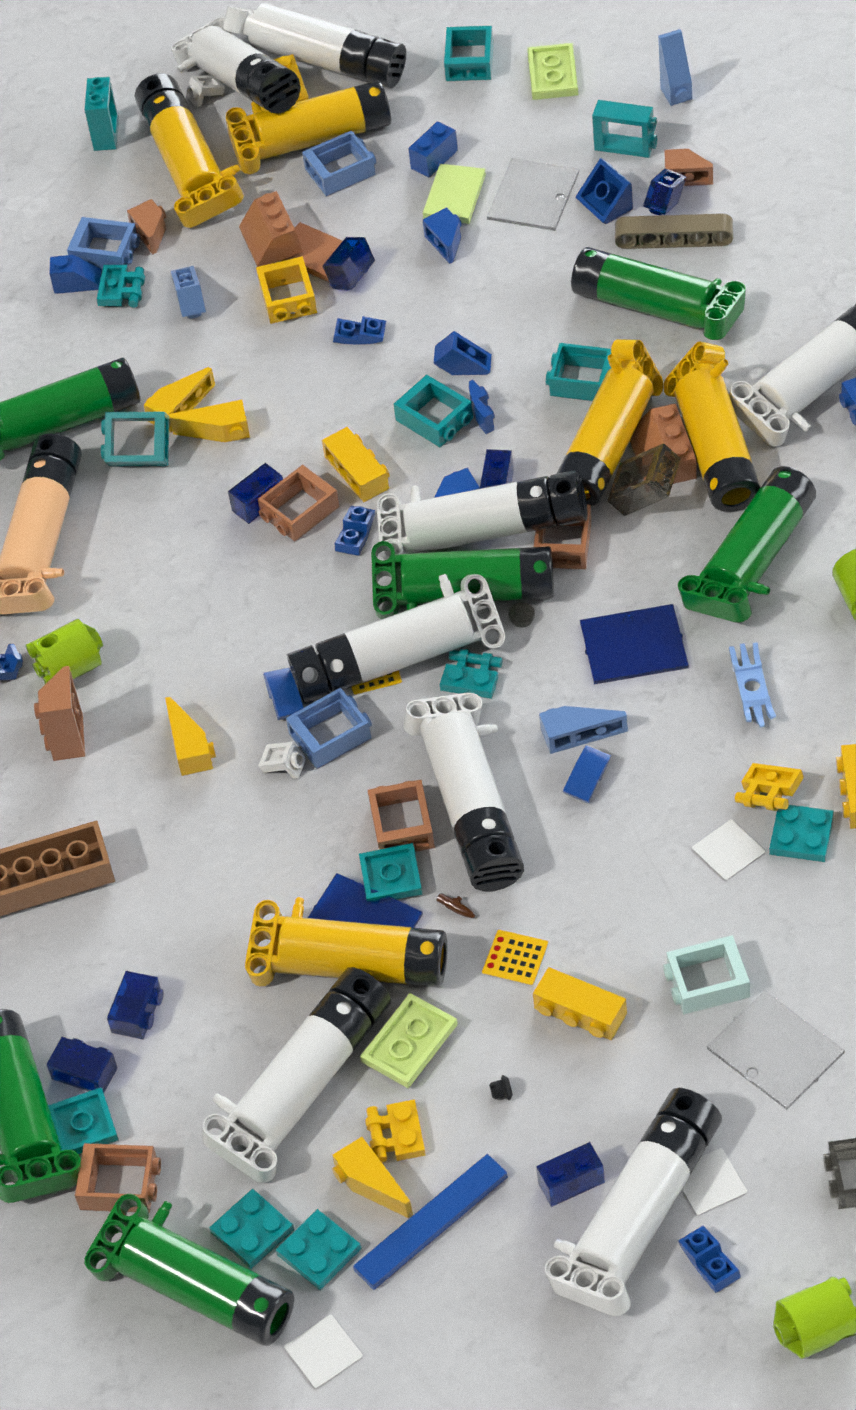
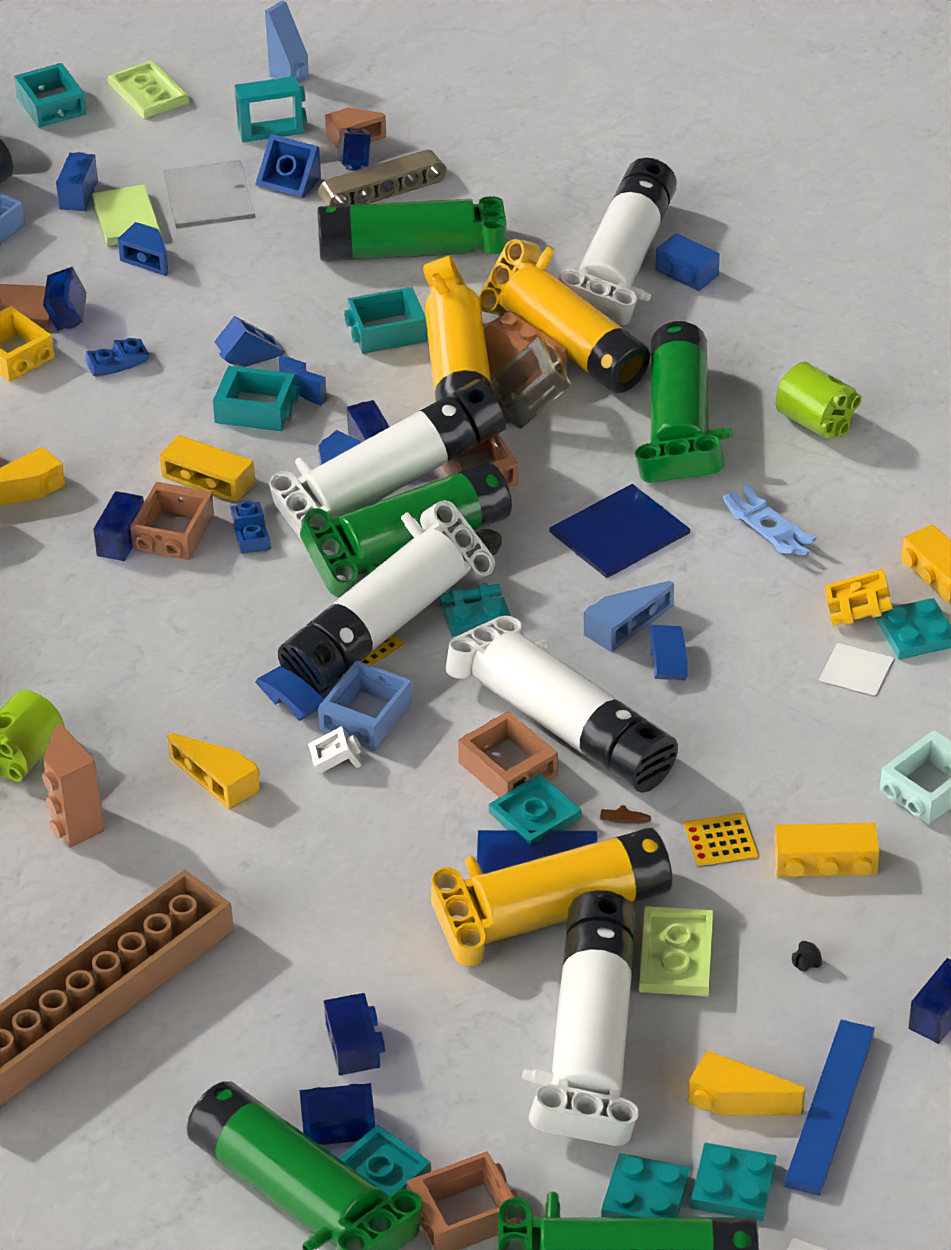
camera: 35 degrees left, 10 degrees down
(405, 1131) = (733, 1032): yellow plate -> none

